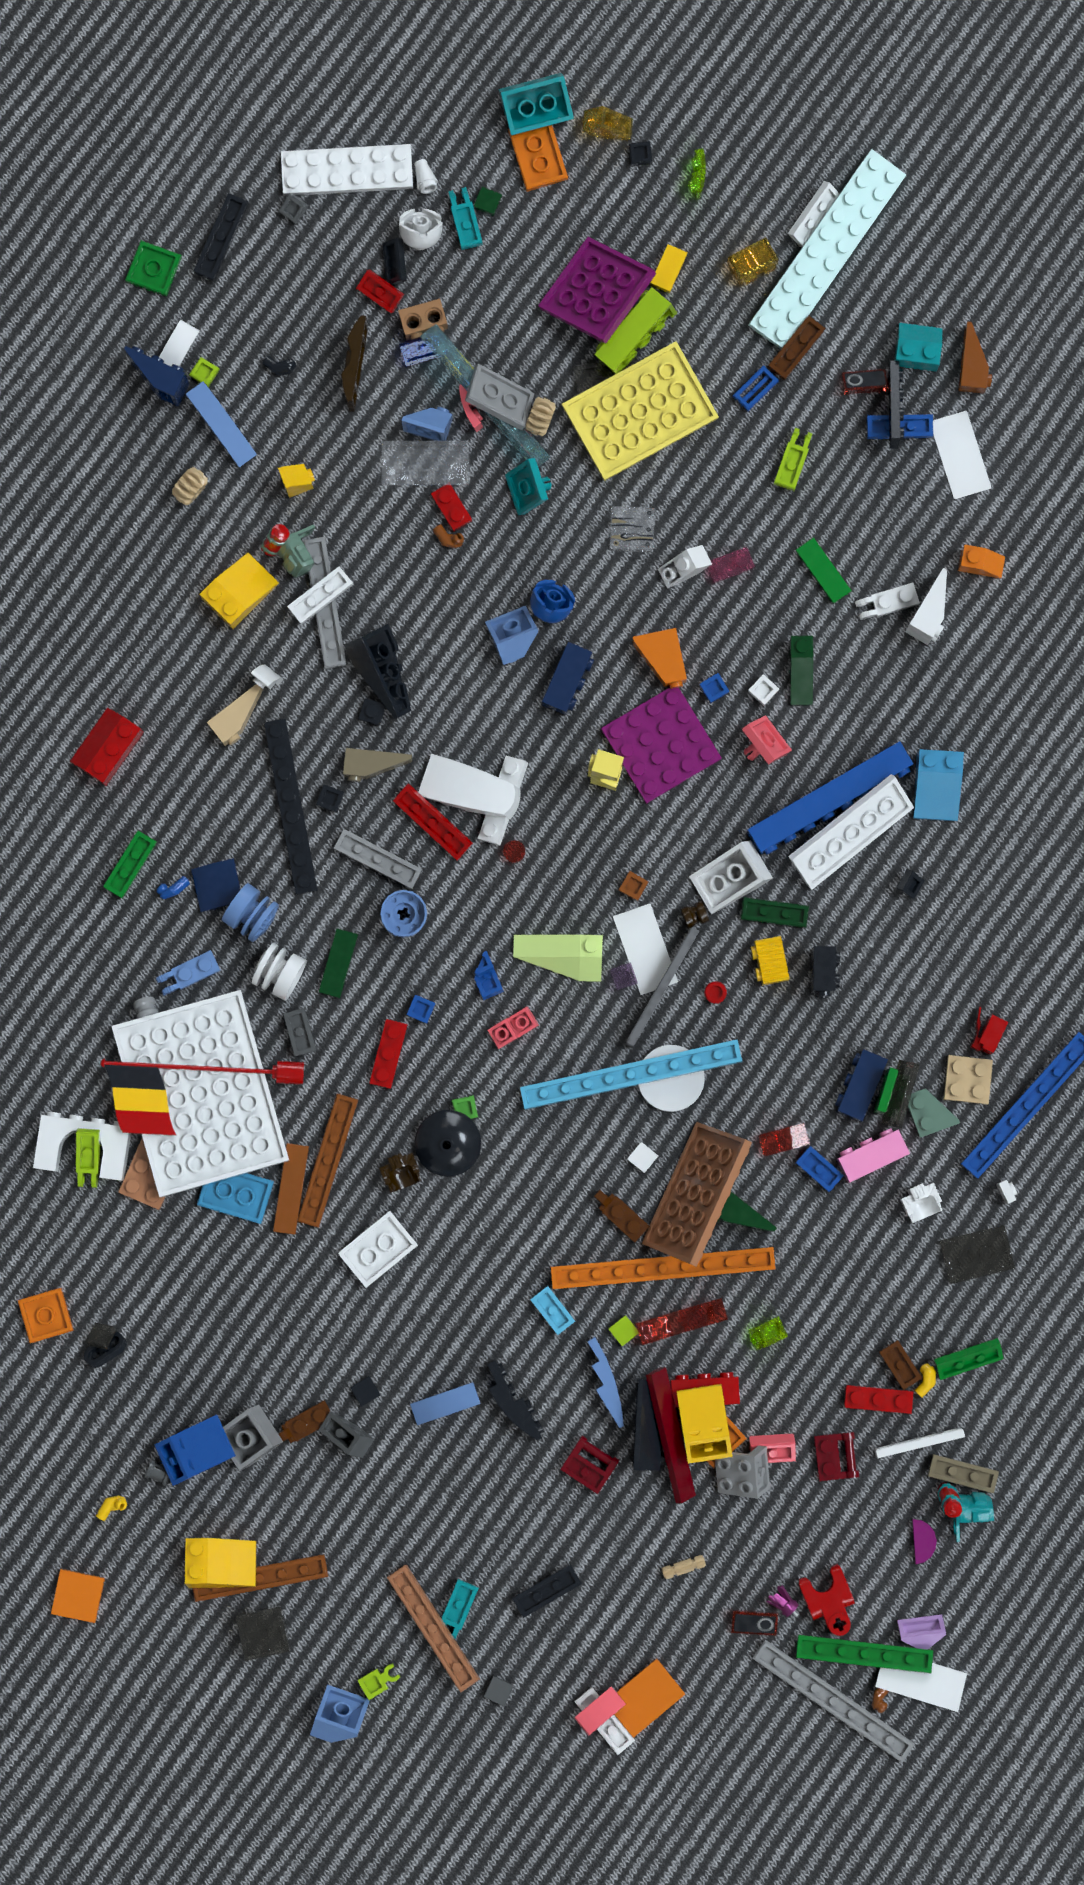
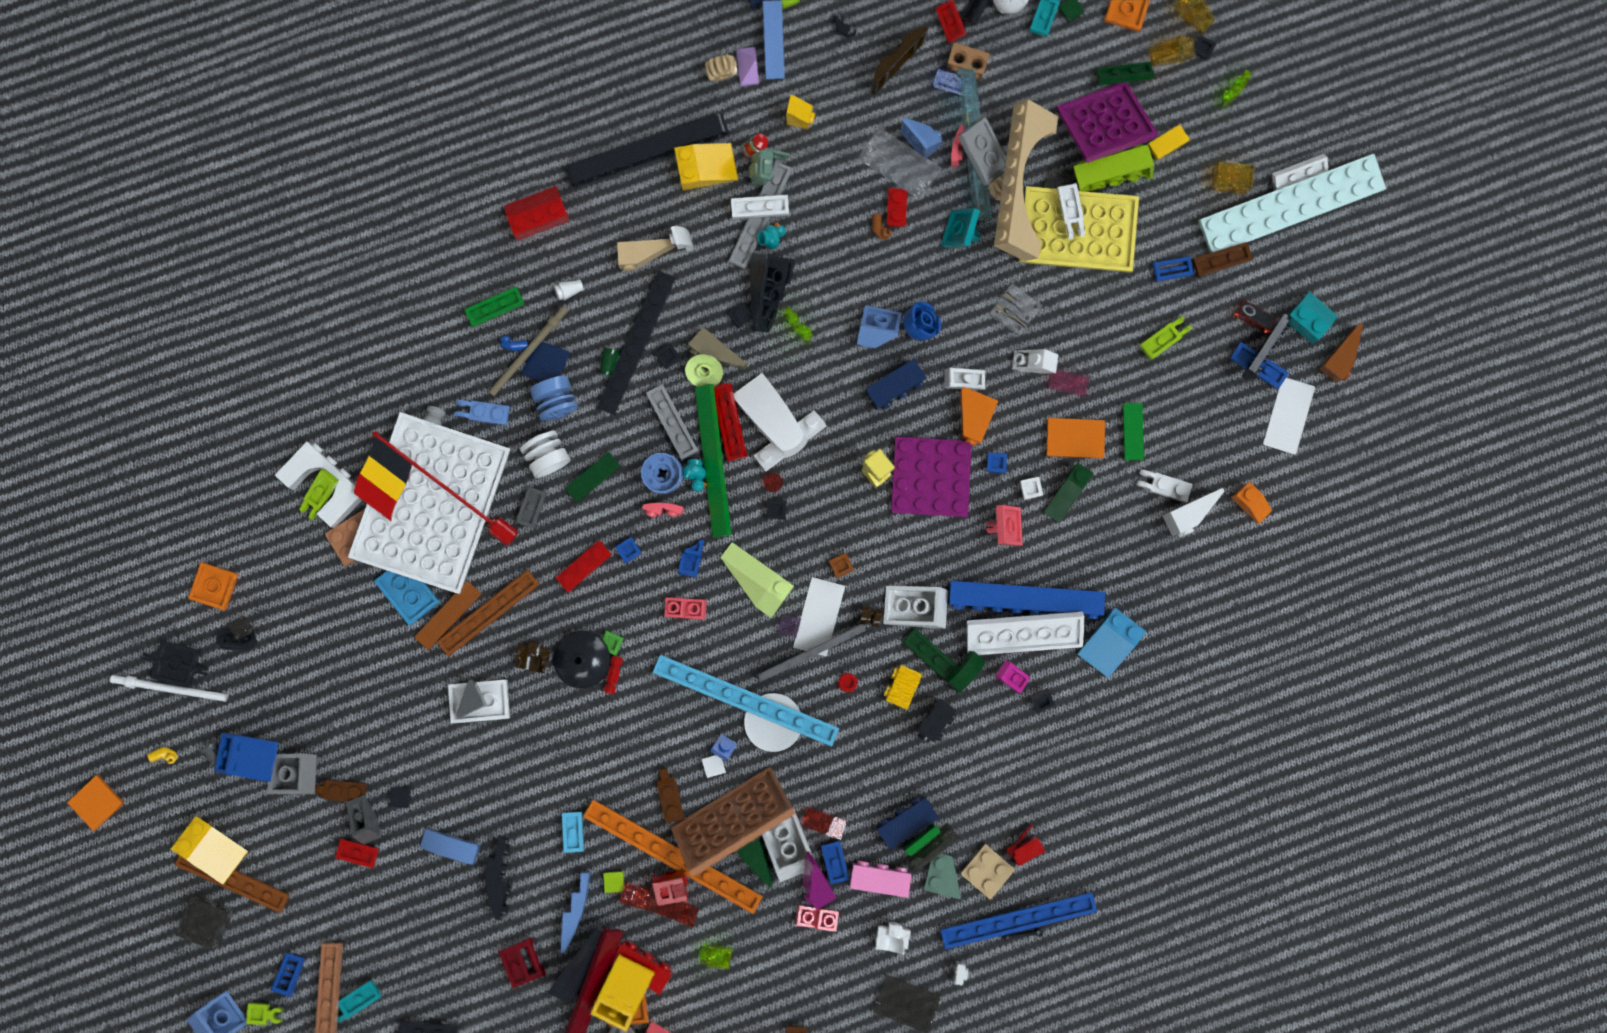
camera: 30 degrees right, 0 degrees up
(31, 1458) = (132, 682): none -> white bar
(62, 1412) = (175, 664): none -> black plate
(172, 614) = (646, 150): none -> black beam
(189, 799) = (567, 289): none -> white cone
(197, 841) = (552, 323): none -> dark tan bar
(212, 466) = (747, 66): none -> lavender slope
(276, 841) = (608, 360): none -> dark green cone
(349, 616) = (771, 235): none -> teal animal
(361, 1470) = (357, 853): none -> red plate
(368, 1631) = (295, 977): none -> blue slope
(371, 1250) = (471, 700): none -> dark grey slope
(378, 796) = (700, 376): none -> yellowish green dish
(420, 952) = (655, 509): none -> coral slope
(435, 891) = (695, 472): none -> teal animal
(441, 687) = (800, 330): none -> clear neon green slope
(443, 869) = (713, 461): none -> green tile
(488, 1137) = (613, 675): none -> red axle
(535, 874) = (776, 509): none -> black plate
(580, 454) = (1013, 228): none -> tan arch
(581, 230) = (1124, 73): none -> dark green tile
(613, 178) = (1172, 51): none -> clear yellow slope
(620, 397) = (1071, 209): none -> white hinge
(628, 627) = (957, 378): none -> white slope
(640, 1133) = (723, 747): none -> plate
(681, 1297) = (670, 887): none -> red piece
(767, 1186) = (787, 848): none -> white slope
(773, 613) = (1075, 438): none -> orange tile
(815, 1200) = (815, 884): none -> magenta slope
(820, 910) = (966, 673): none -> dark green slope
(837, 1233) = (820, 919): none -> coral slope
(867, 880) = (1012, 676): none -> dark pink slope
(1028, 1127) = (1038, 932): none -> black hinge

